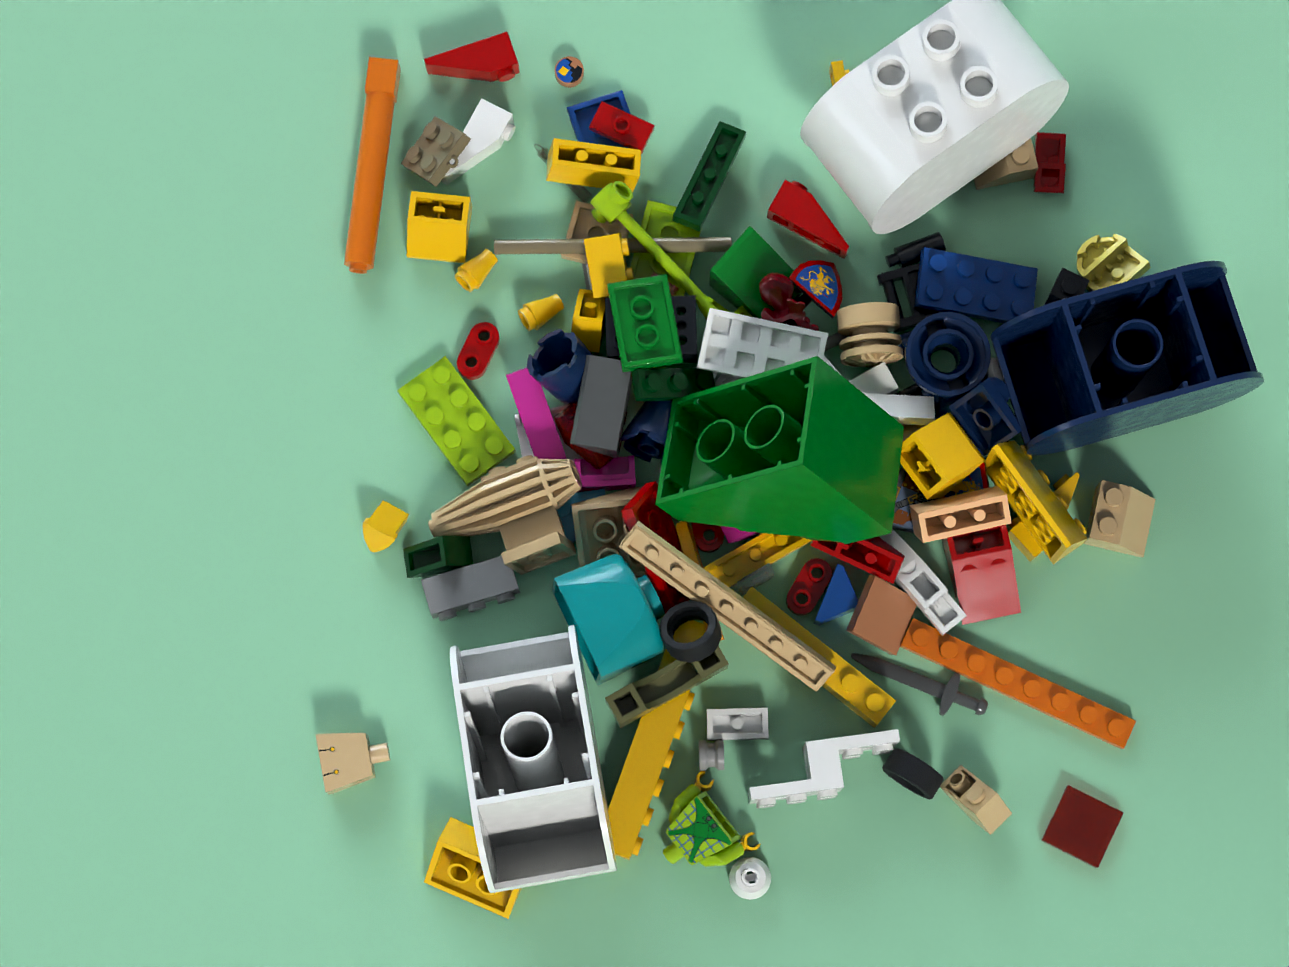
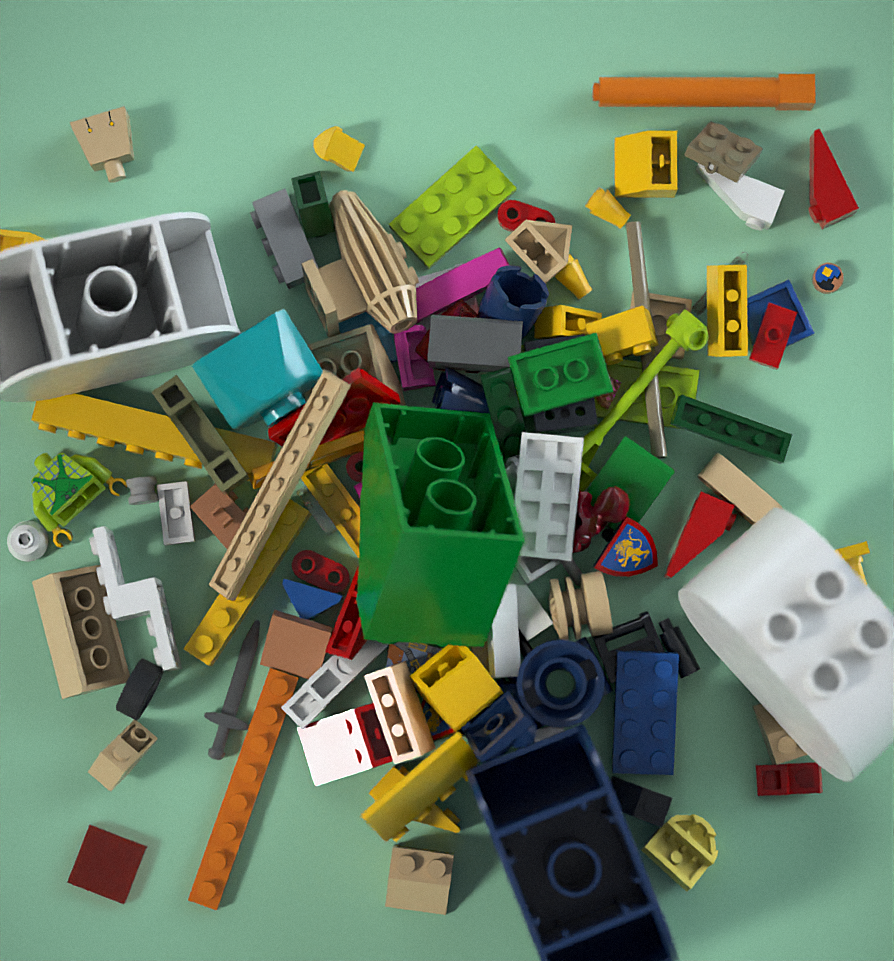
camera: 85 degrees right, 5 degrees up
(510, 334) = (542, 246): none -> tan slope
(681, 614) = (260, 433): black tyre -> none
(746, 675) = (220, 513): none -> nougat brick
(769, 175) = (737, 489): none -> tan beam
(848, 830) = (80, 632): none -> tan slope

